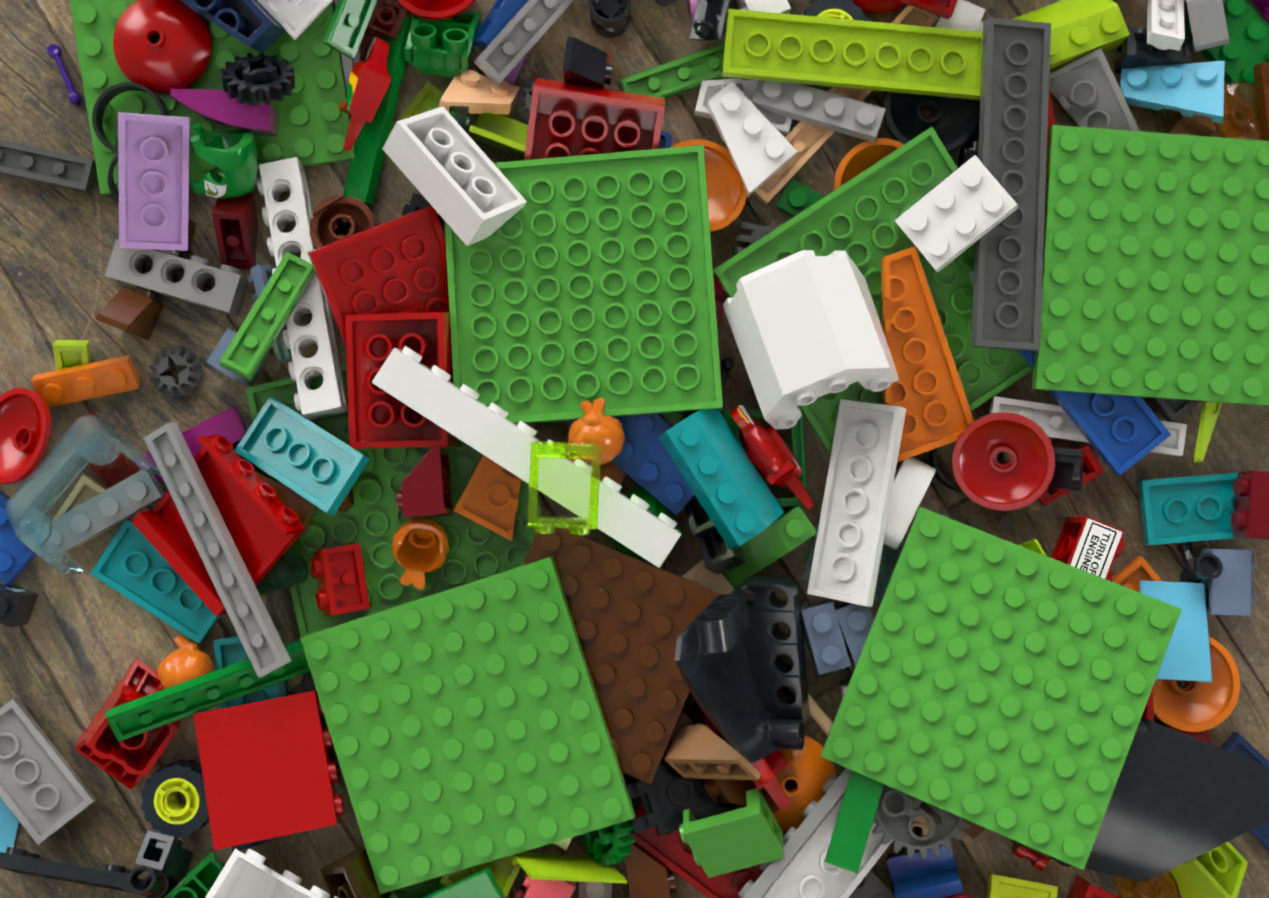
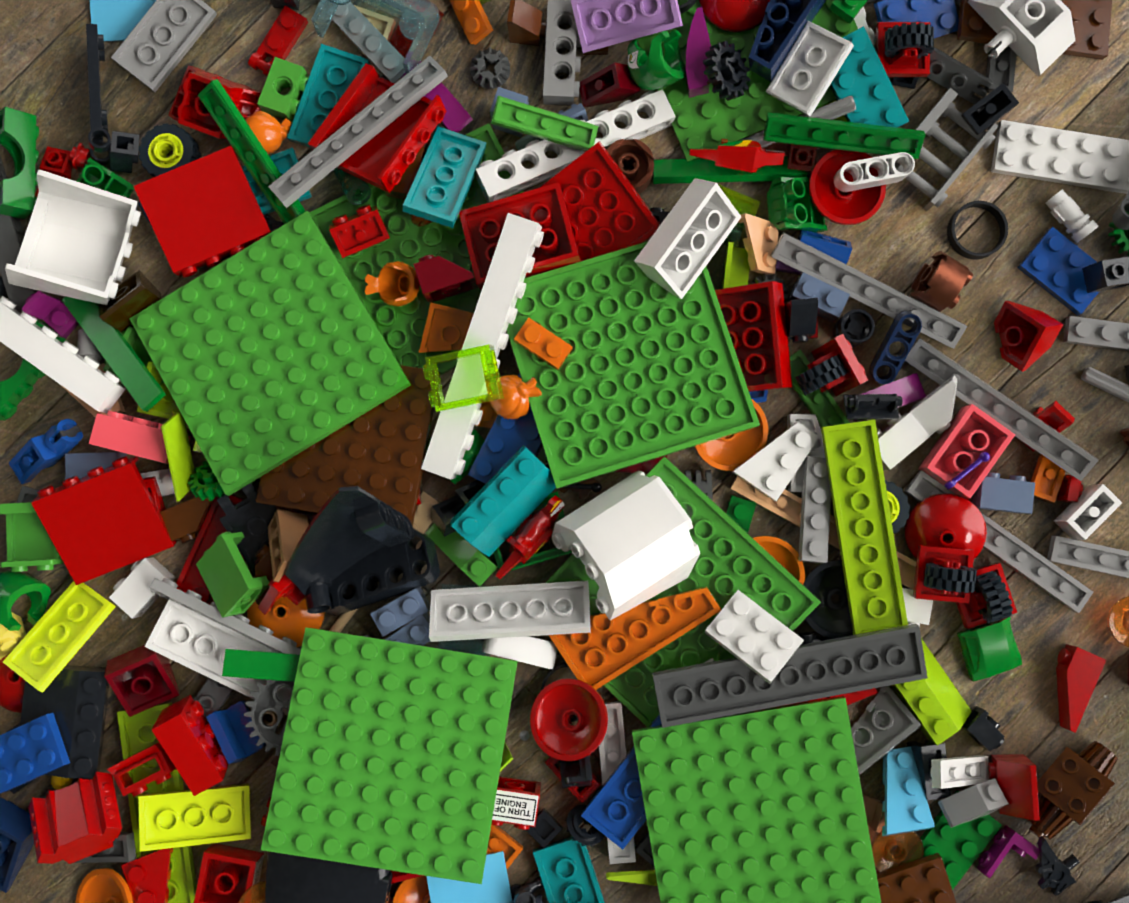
camera: 85 degrees right, 0 degrees up
(73, 627) = (279, 39): none -> red plate
(118, 628) = (283, 75): none -> bright green brick
(541, 381) = (543, 343): none -> orange plate
(549, 49) = (830, 299): none -> sand blue brick
(654, 44) = (833, 368): none -> red plate
(1126, 520) = (546, 828): none -> black plate
(1146, 476) = (584, 837): none -> black gear

